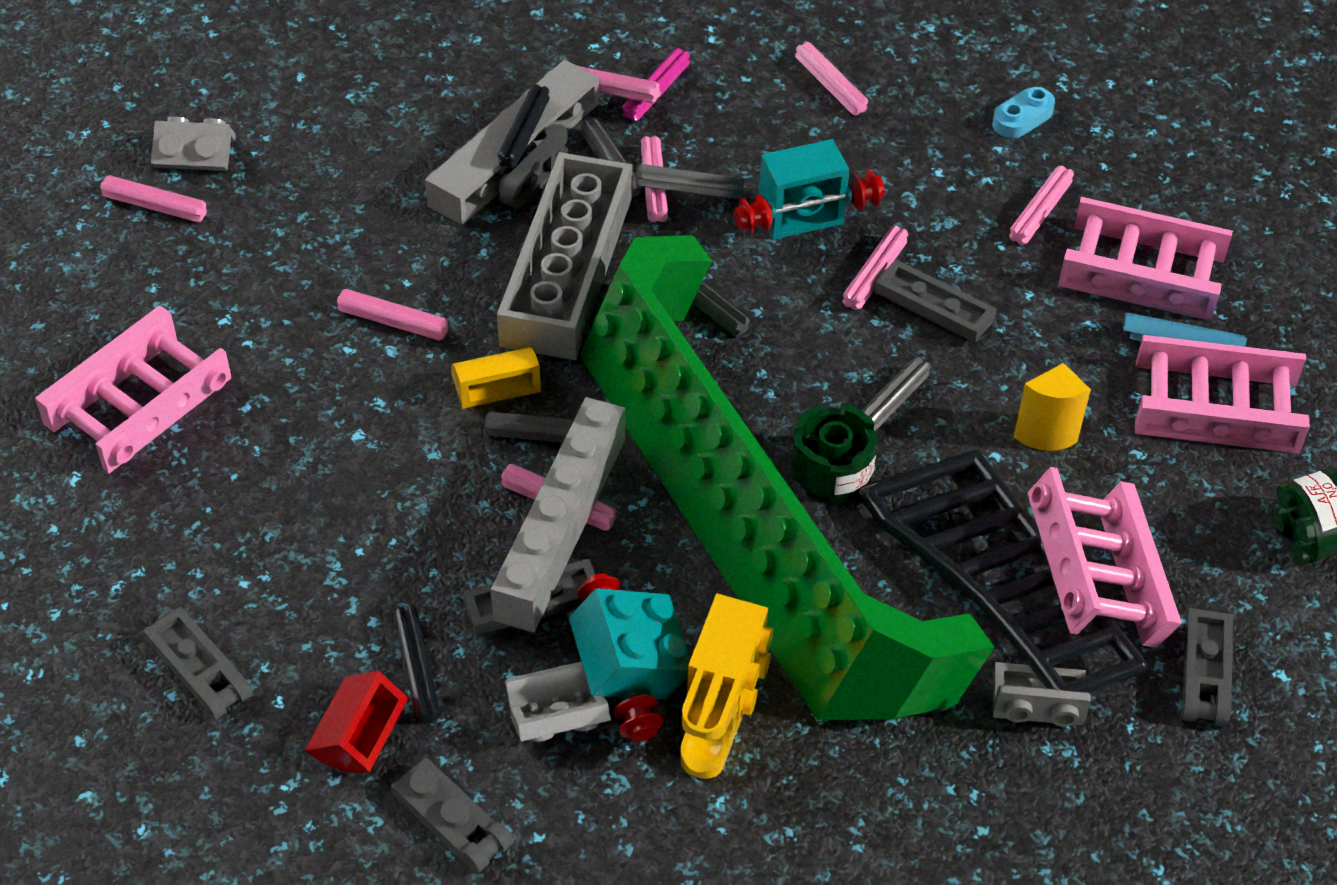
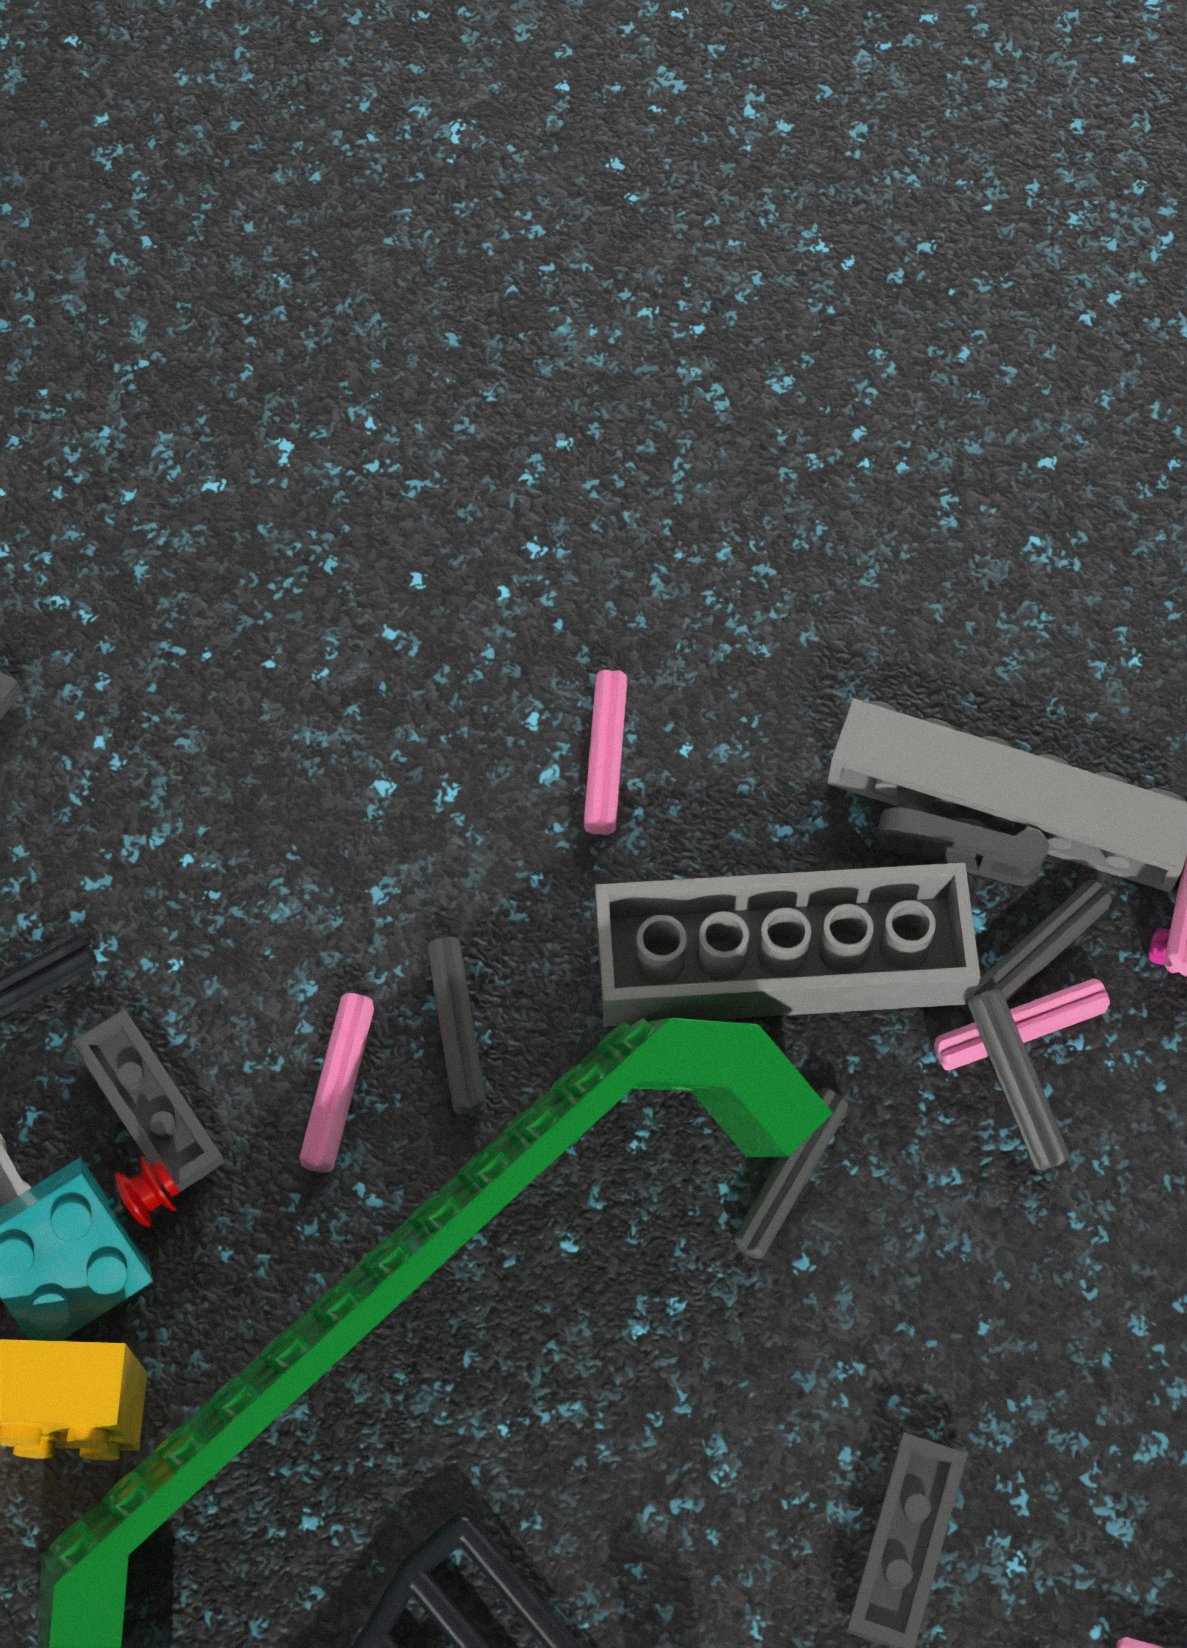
camera: 75 degrees right, 15 degrees up
(114, 363) = (360, 440): bright pink fence -> none
(153, 198) = (716, 377): bright pink axle -> none
(192, 145) = (833, 379): light grey bracket -> none
(497, 377) = (531, 924): yellow brick -> none
(523, 126) = (1009, 795): black axle -> none
(558, 515) = (263, 1088): light grey brick -> none
(806, 191) = (1046, 1262): teal brick -> none
(834, 451) = (495, 1418): dark green brick -> none
(874, 267) = (955, 1426): bright pink axle -> none
(897, 391) = (673, 1516): dark grey axle -> none

